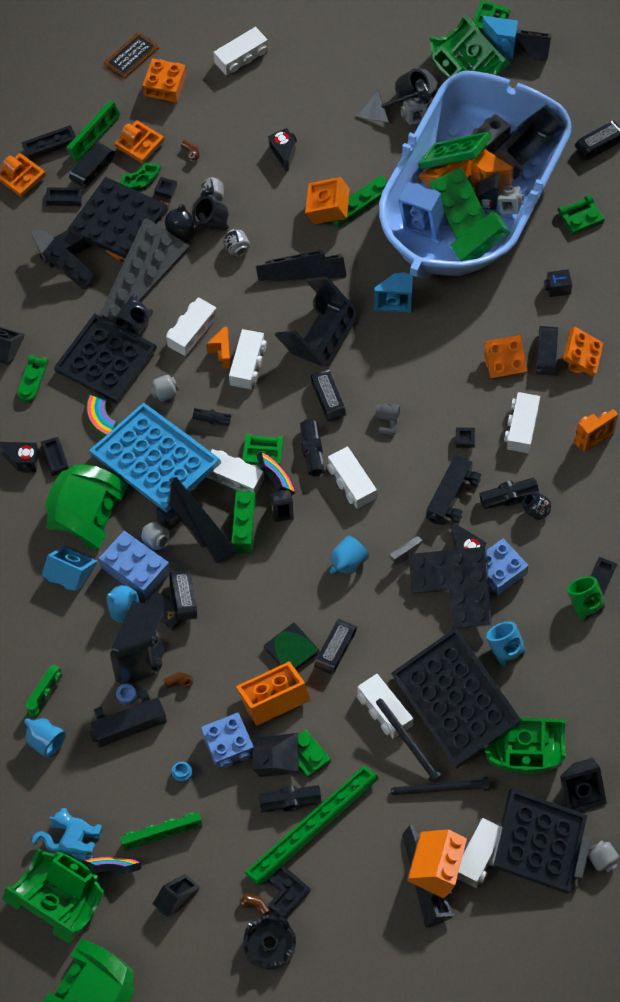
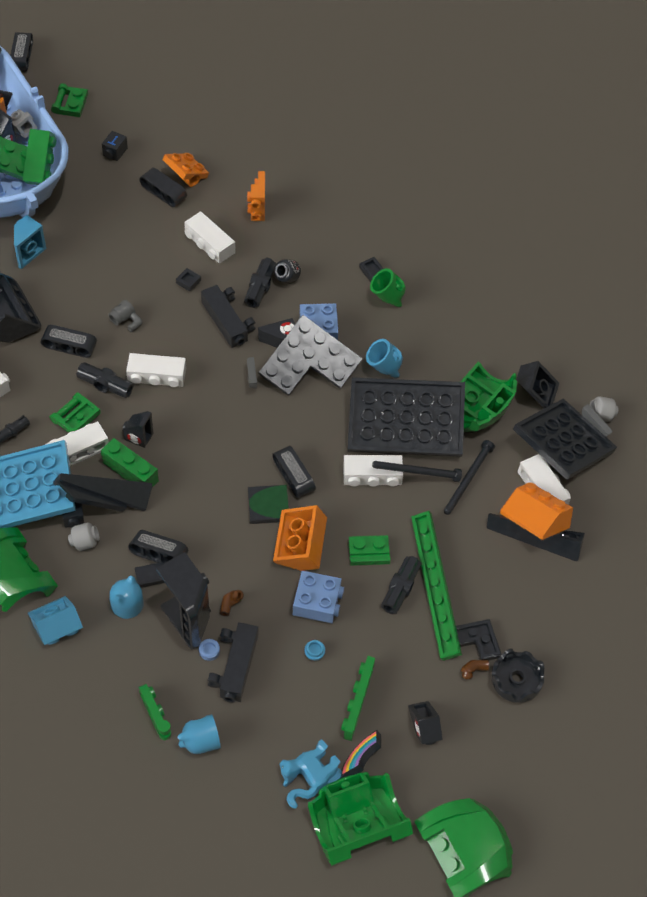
camera: 60 degrees left, 5 degrees down
(134, 565) = (96, 567): medium blue brick -> none
(275, 472) = (105, 416): tile -> none
(276, 755) = (356, 569): black slope -> none
(348, 556) = (224, 412): dark azure piece -> none
(505, 356) = (144, 213): orange plate -> none

